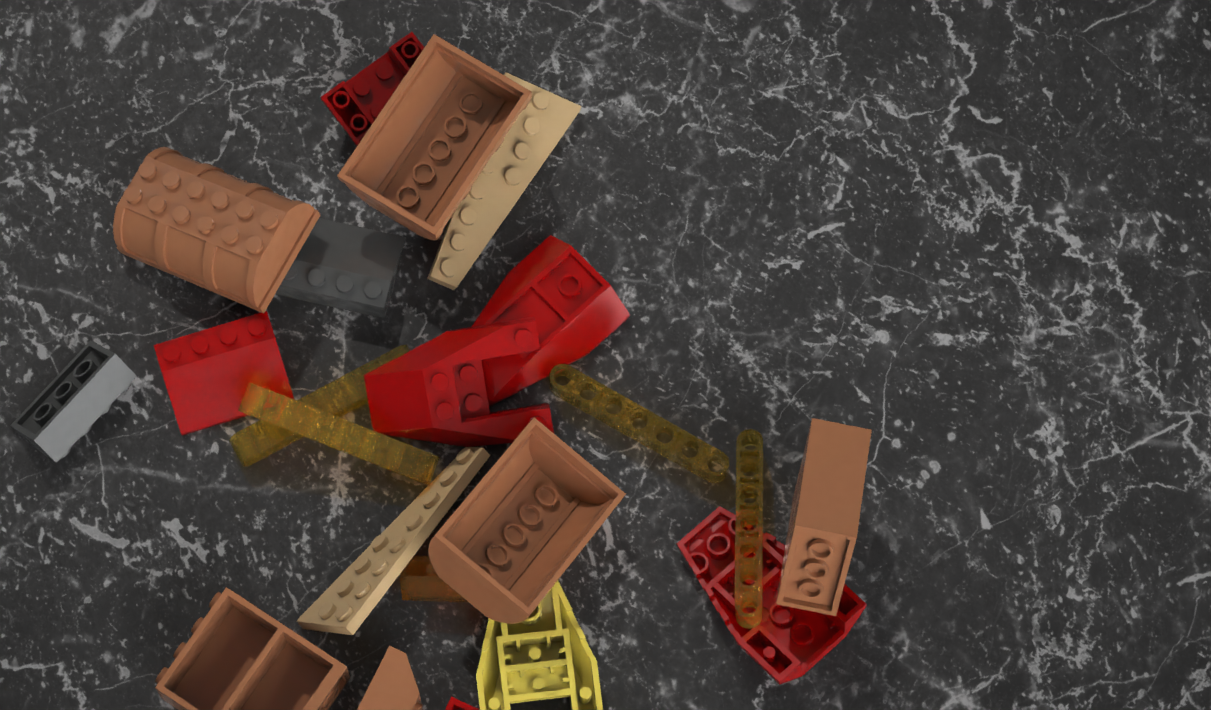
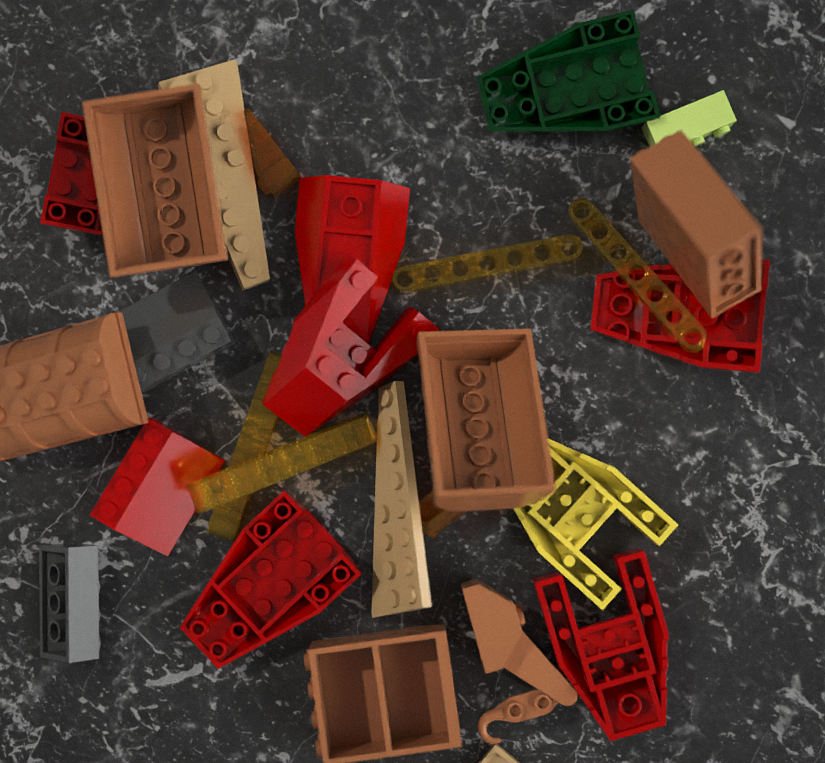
camera: 35 degrees left, 15 degrees up
(242, 517) = (269, 582): none -> red wedge
(537, 202) = (270, 163): none -> clear orange slope
(831, 340) = (572, 82): none -> dark green wedge
(904, 453) = (695, 120): none -> yellowish green brick

